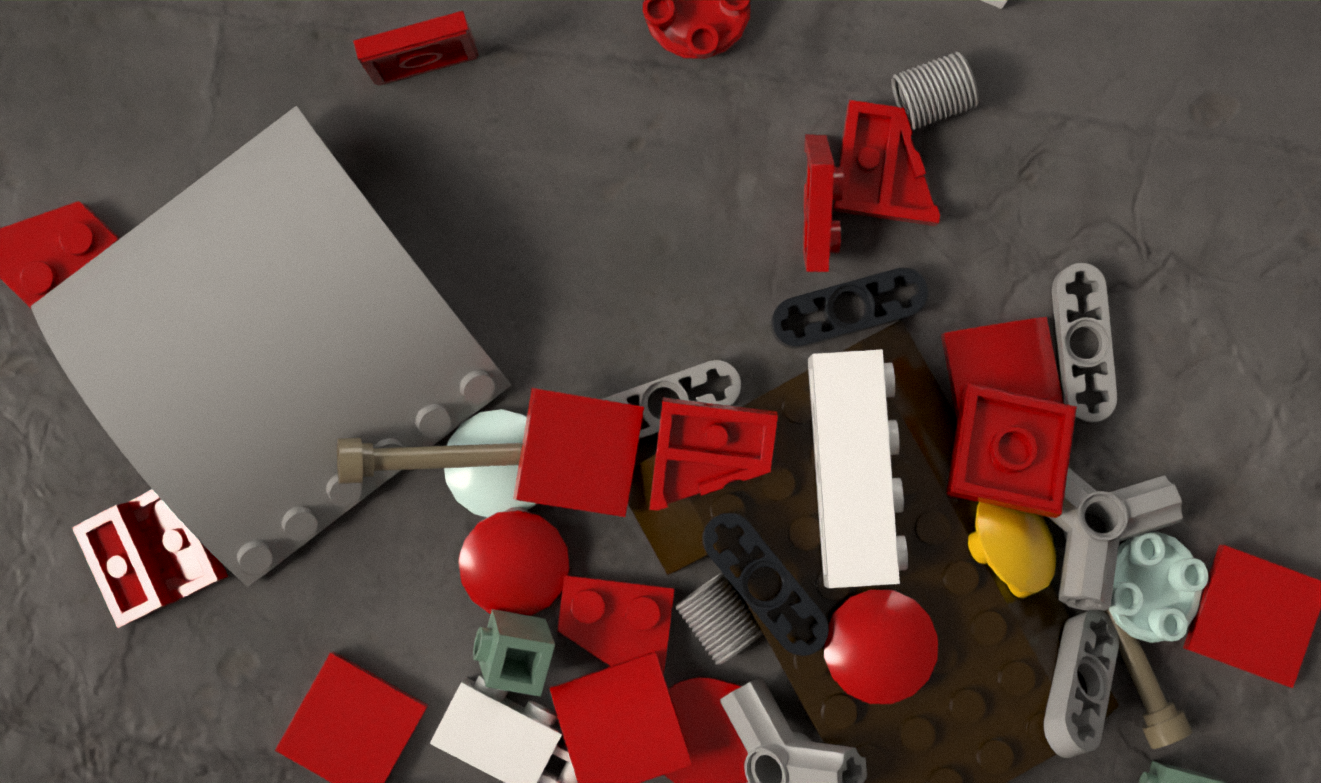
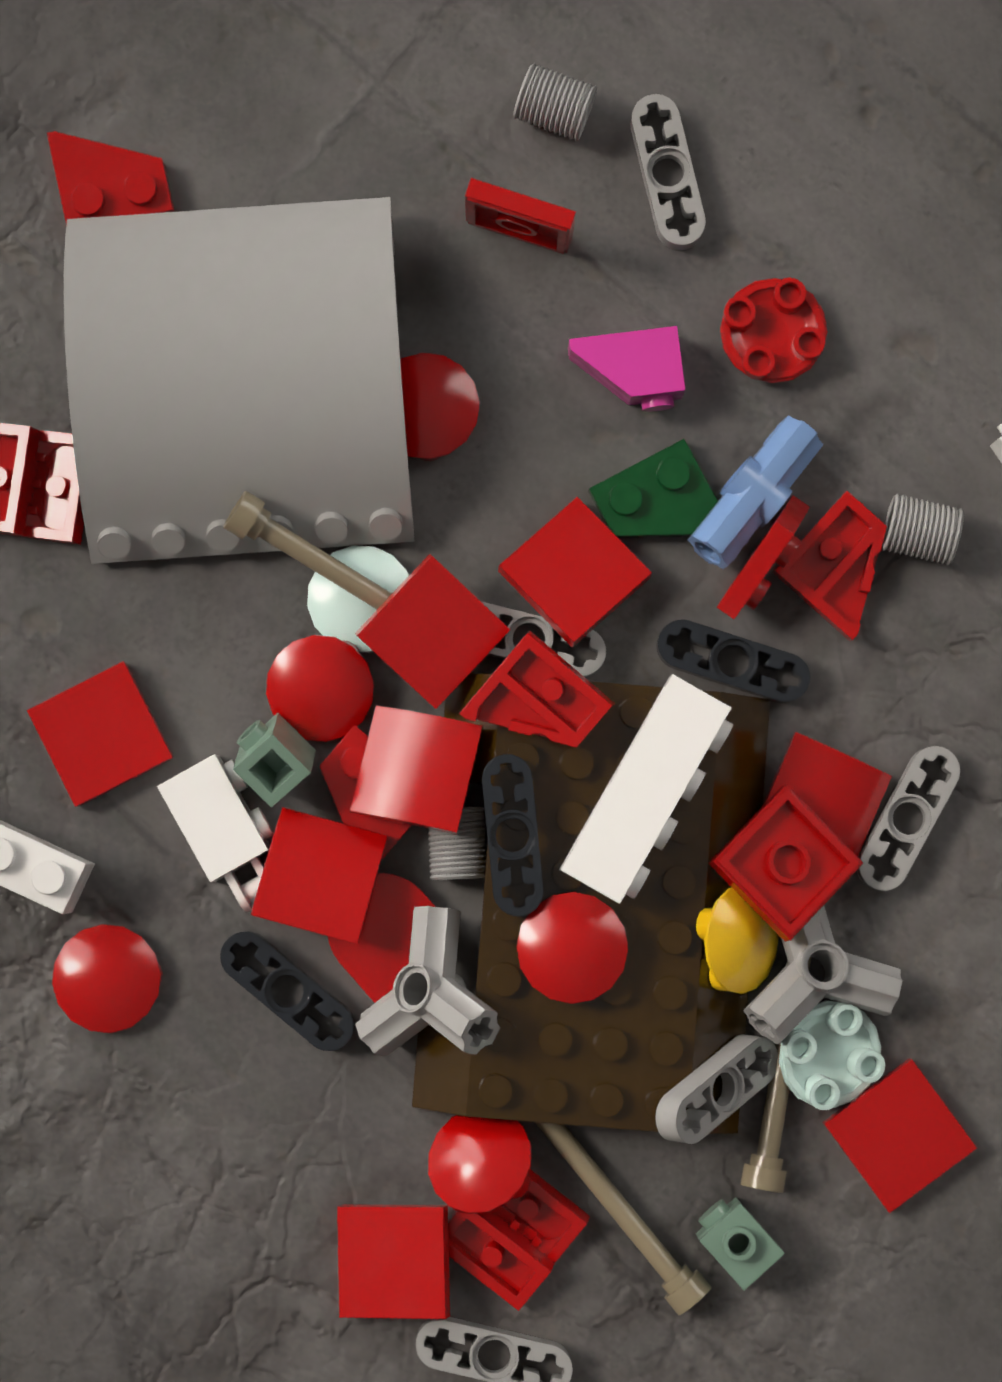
camera: 30 degrees right, 0 degrees up
(454, 256) = (438, 405): none -> red dish
(599, 112) = (634, 365): none -> dark pink slope
(643, 580) = (416, 769): none -> slope
(665, 321) = (574, 572): none -> red tile
(695, 210) = (656, 496): none -> dark green wing
(774, 152) = (755, 492): none -> medium blue piece

